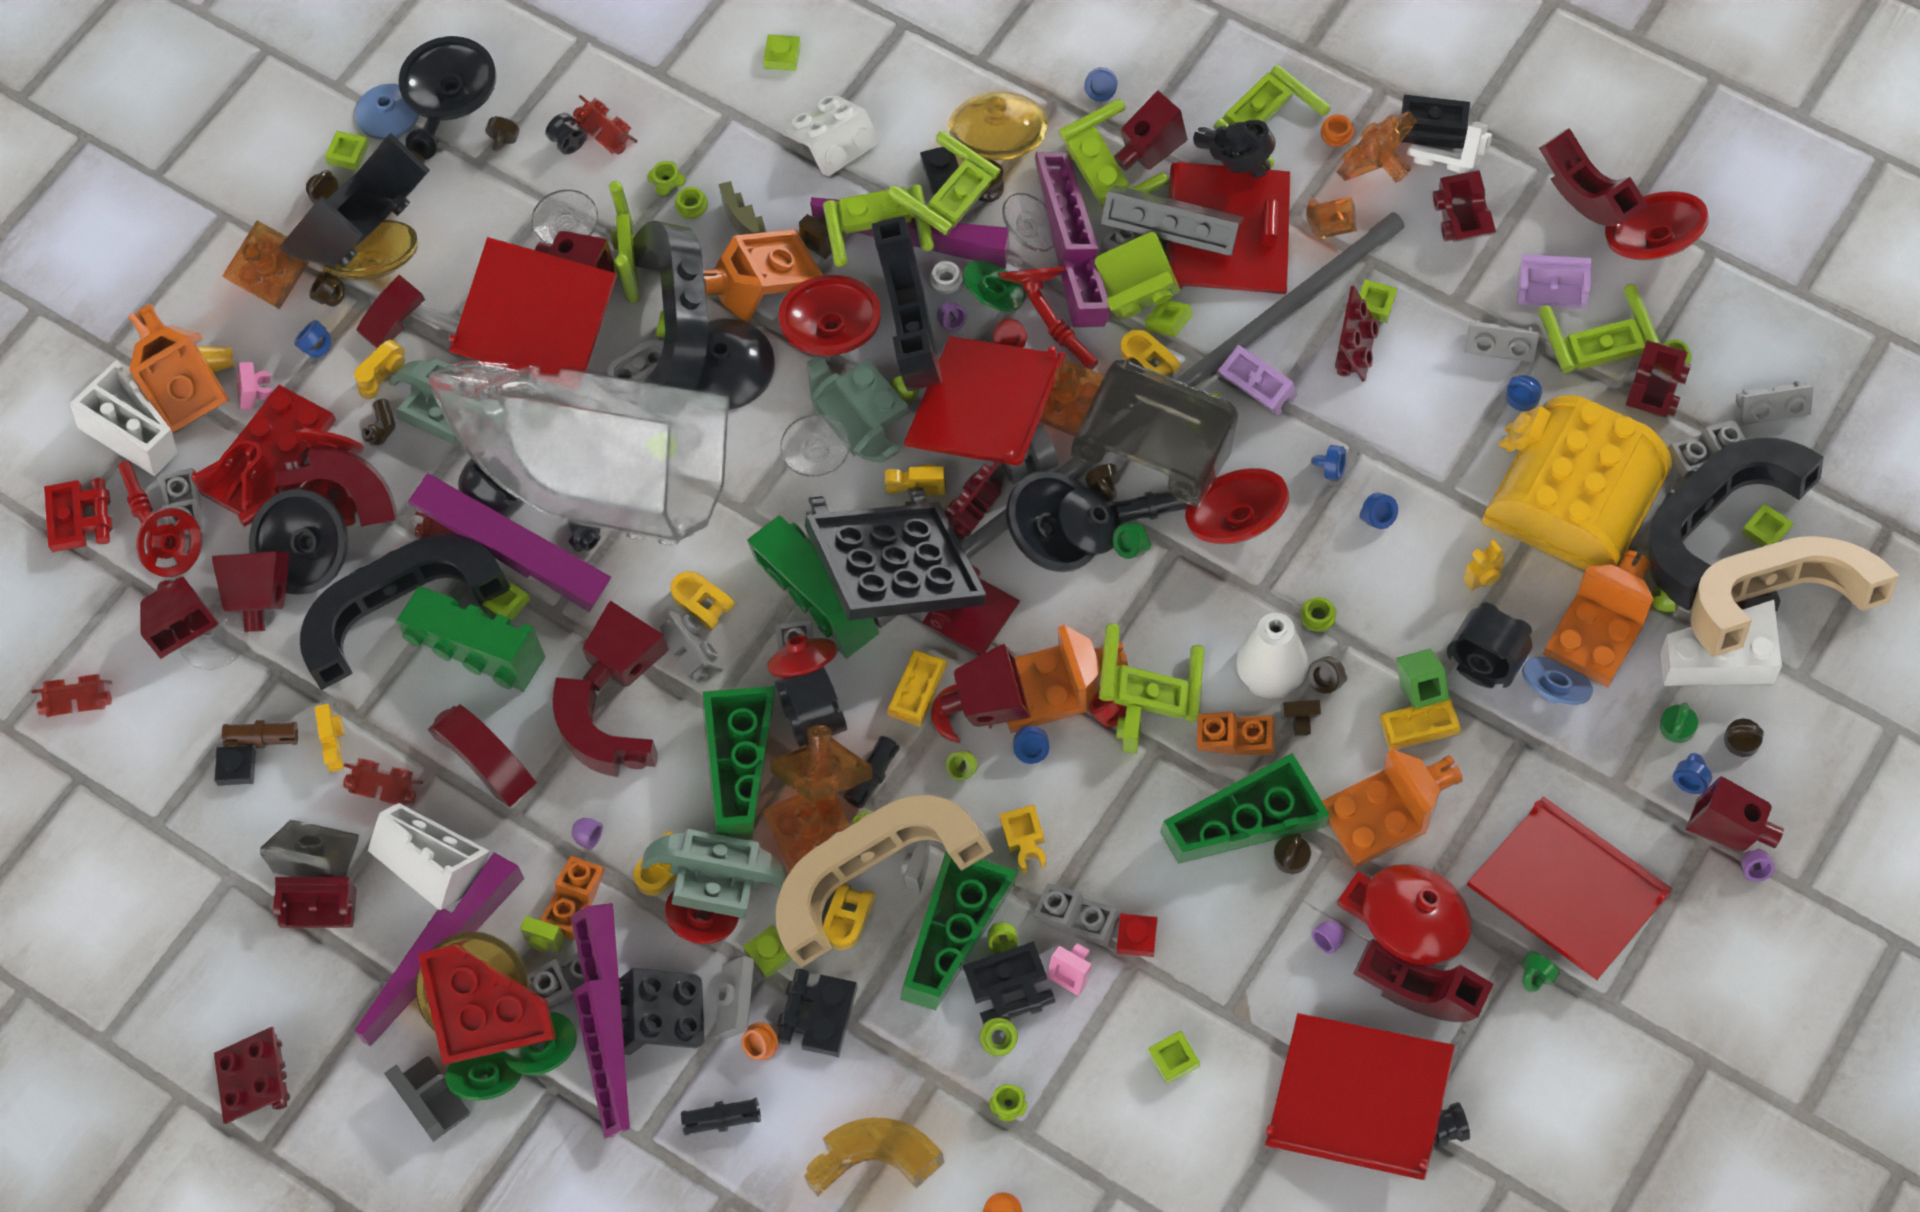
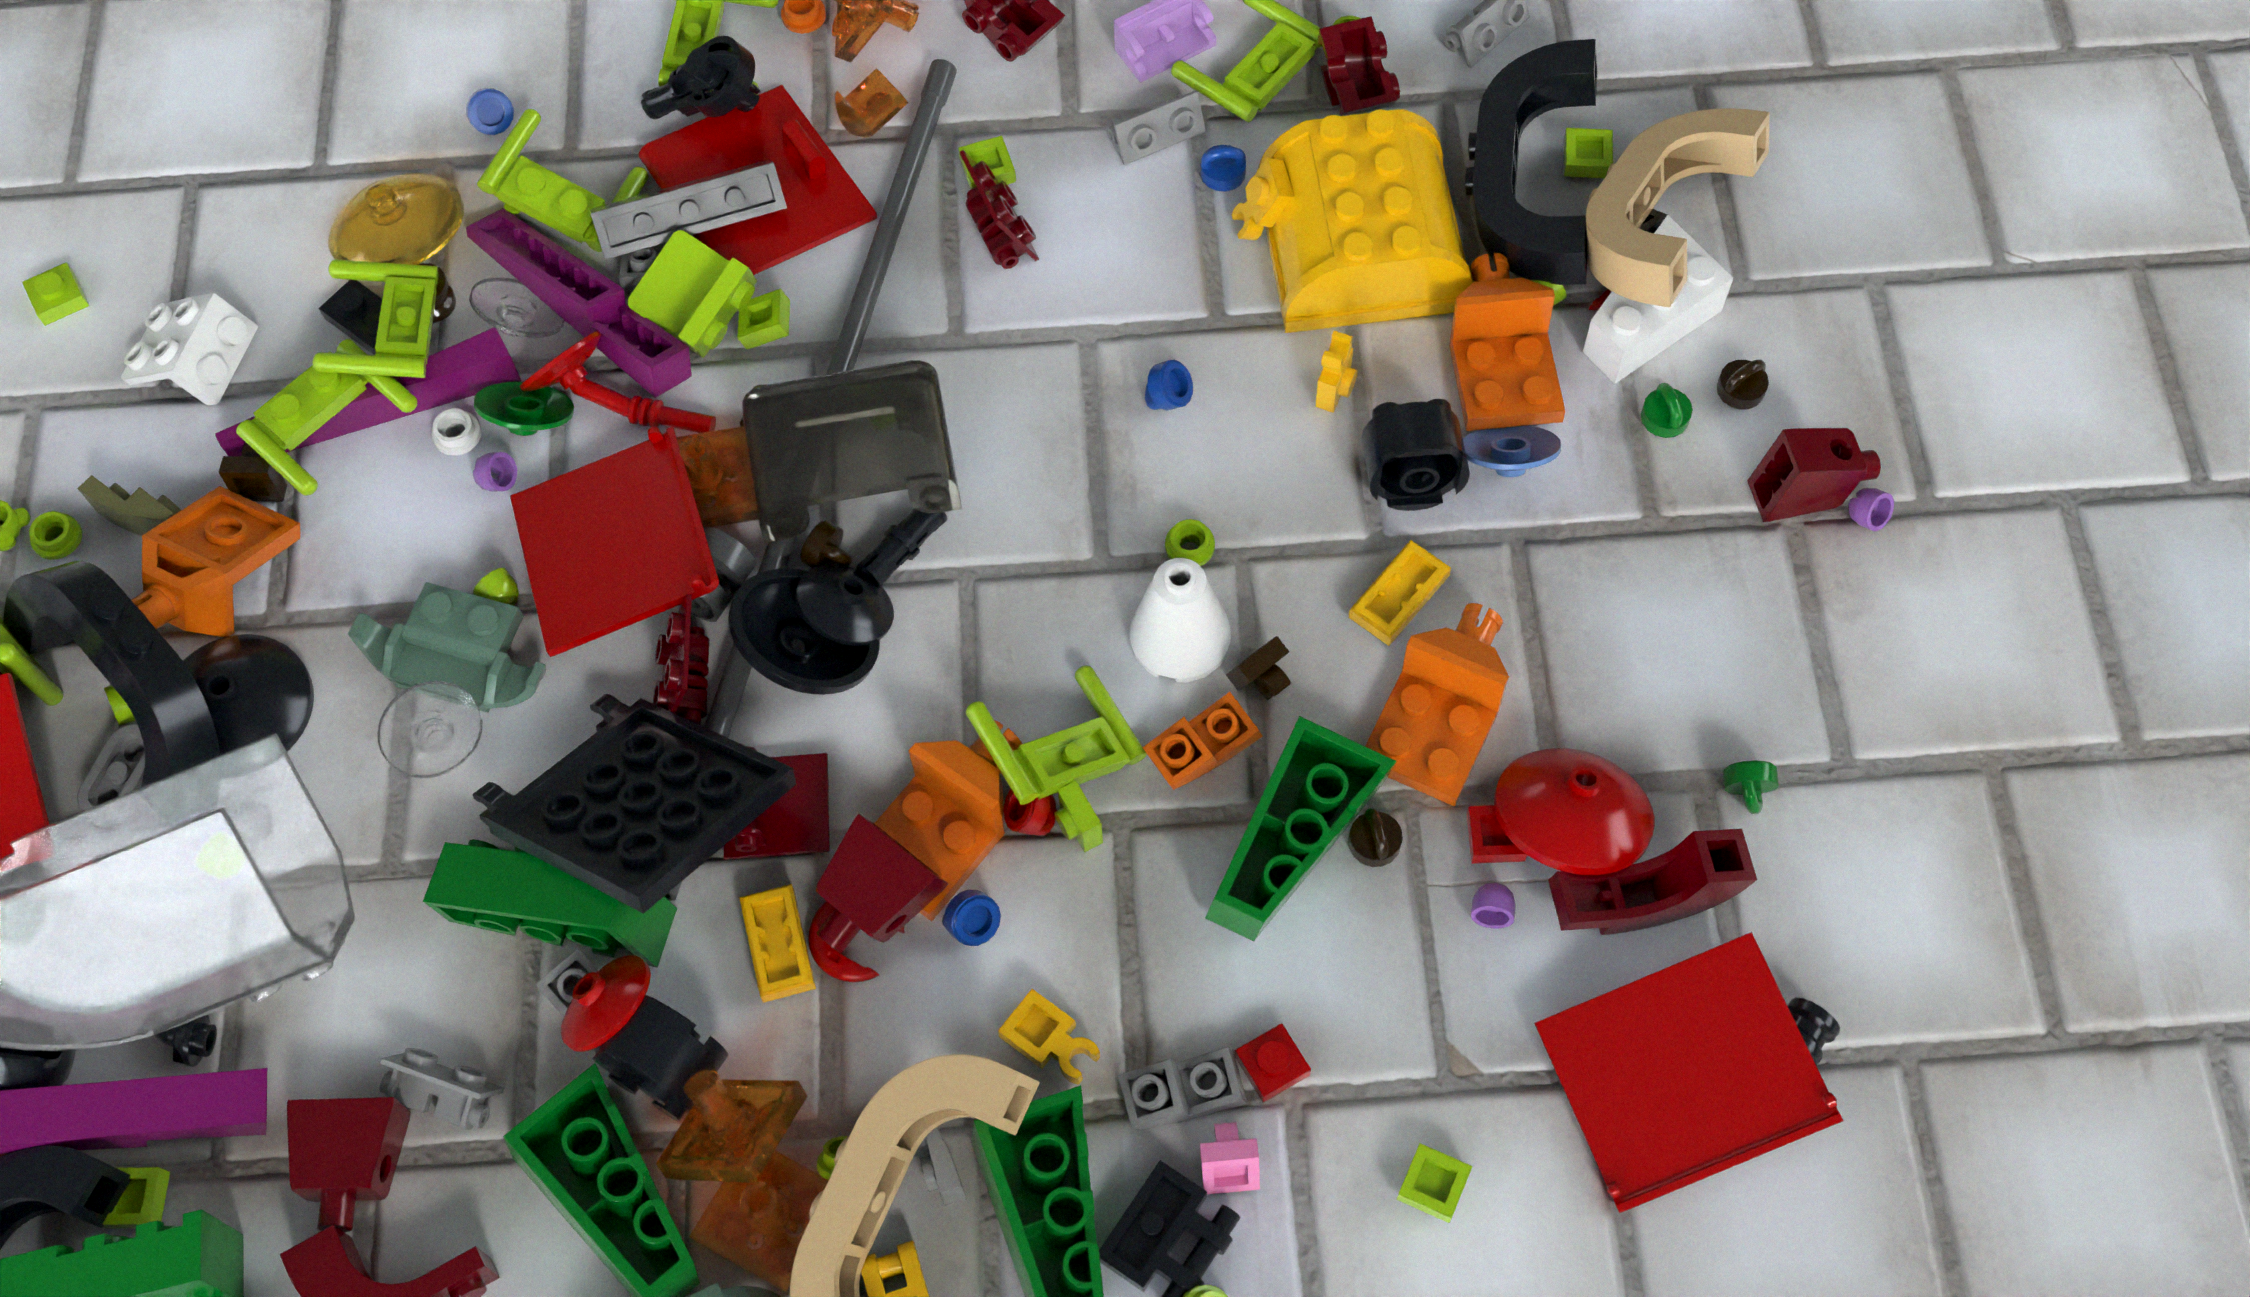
camera: 40 degrees left, 0 degrees up
(691, 590) = (390, 1015): yellow plate -> none
(829, 315) = (338, 559): red dish -> none
(879, 759) = (793, 1063): black pin -> none
(915, 339) = (473, 521): black arch -> none
(927, 476) = (600, 677): yellow plate -> none
(957, 760) = (893, 999): lime hinge -> none
(994, 941) = (1124, 1189): lime hinge -> none
(1009, 333) = (583, 447): red tile -> none
(1131, 540) = (910, 597): green tile -> none
(1145, 348) = (762, 367): yellow plate -> none
(1151, 133) = (593, 126): dark red torso -> none
(1239, 506) = (1012, 477): red dish -> none
(1258, 379) = (921, 323): lavender hinge -> none
(1326, 675) = (1255, 605): dark brown tile -> none
(1333, 462) = (1076, 364): blue tile -> none
(1422, 678) = (1367, 538): bright green brick -> none
(1570, 887) = (1707, 666): red container -> none
(1692, 774) = (1729, 456): blue tile -> none
(1698, 449) = (1459, 108): light grey slope -> none

